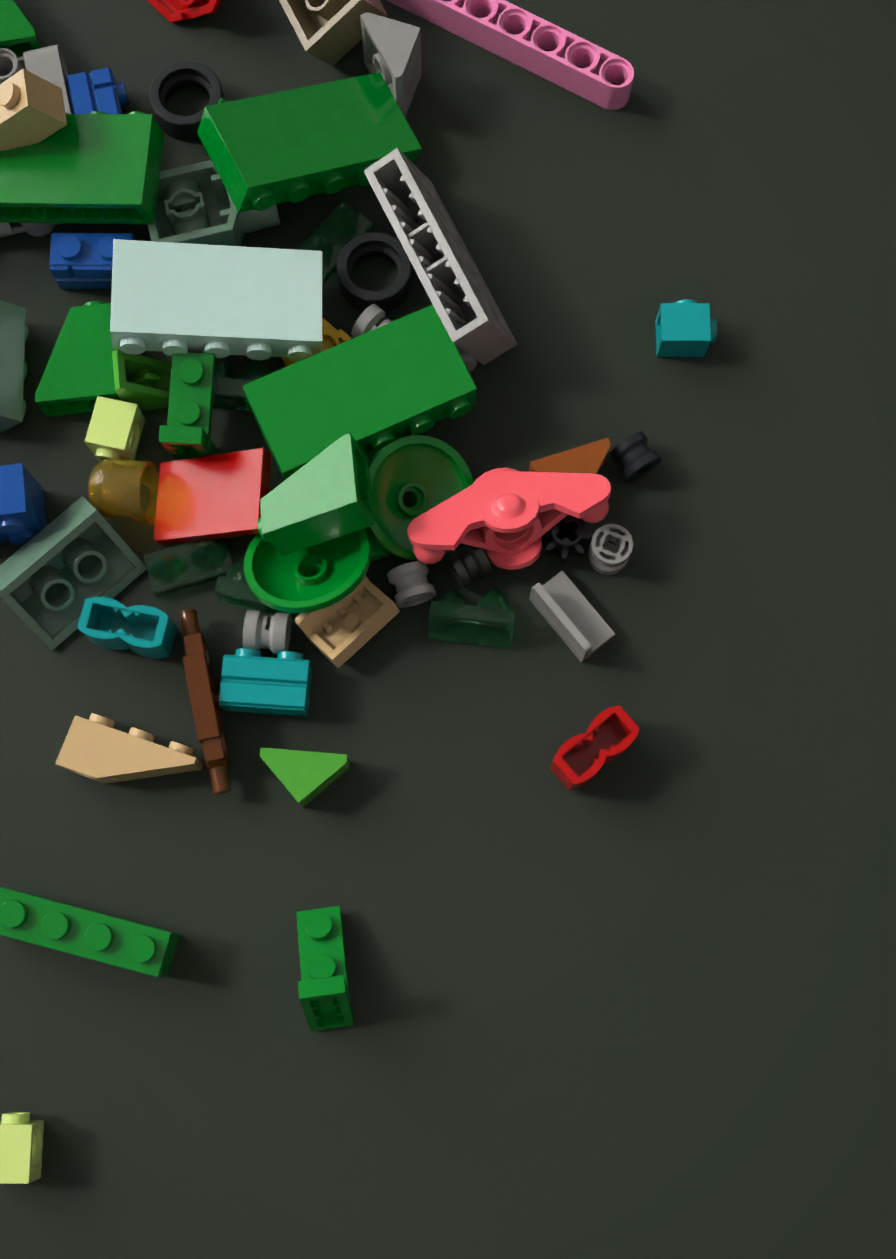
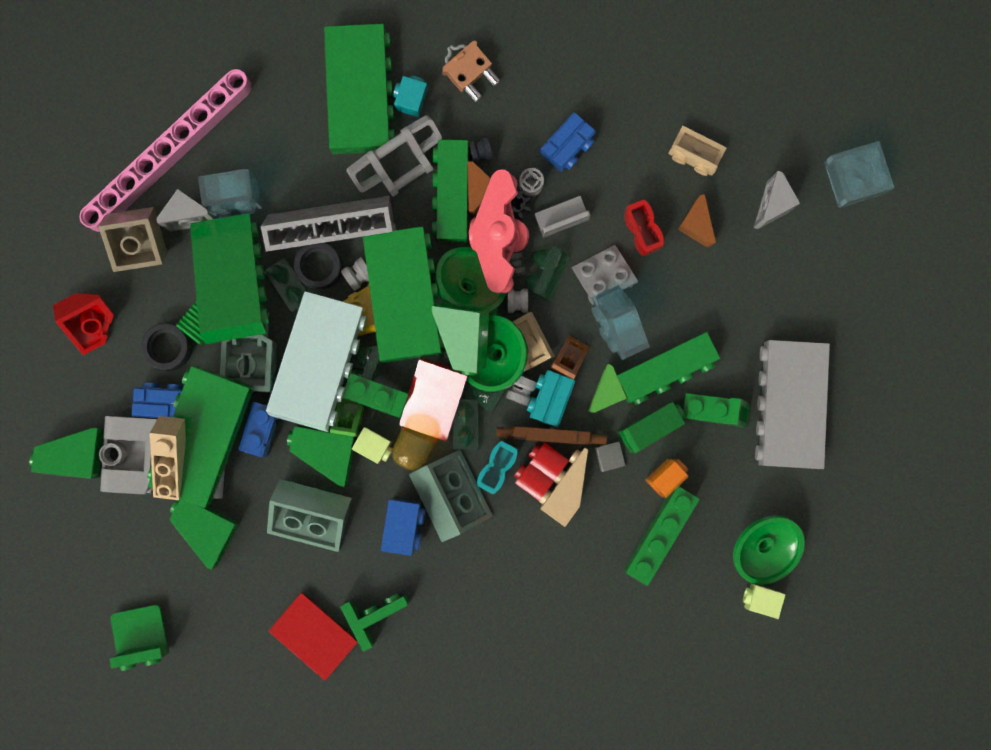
camera: 70 degrees left, 10 degrees up
(101, 1129) = (768, 549): none -> green dish
(142, 701) = (541, 470): none -> red brick
(181, 911) = (668, 477): none -> orange brick
(197, 809) = (610, 456): none -> light grey slope
(261, 861) = (652, 427): none -> green slope
(341, 694) = (570, 358): none -> dark orange slope
(369, 1100) = (793, 404): none -> light grey brick
(371, 859) = (667, 368): none -> green brick
(418, 749) = (619, 322): none -> clear light blue brick
(443, 112) = (230, 193): none -> clear light blue brick
(496, 711) = (604, 272): none -> light grey hinge
(546, 321) = (418, 150): none -> light grey bar
(554, 428) = (452, 191): none -> green brick
(633, 837) = (698, 223): none -> dark orange slope
(667, 250) = (358, 88): none -> green brick
(694, 589) = (568, 143): none -> blue brick
(712, 961) = (776, 200): none -> light grey slope
(753, 802) = (696, 151): none -> tan bracket
(760, 396) = (466, 66): none -> nougat piece
(813, 1098) = (859, 174): none -> clear light blue brick

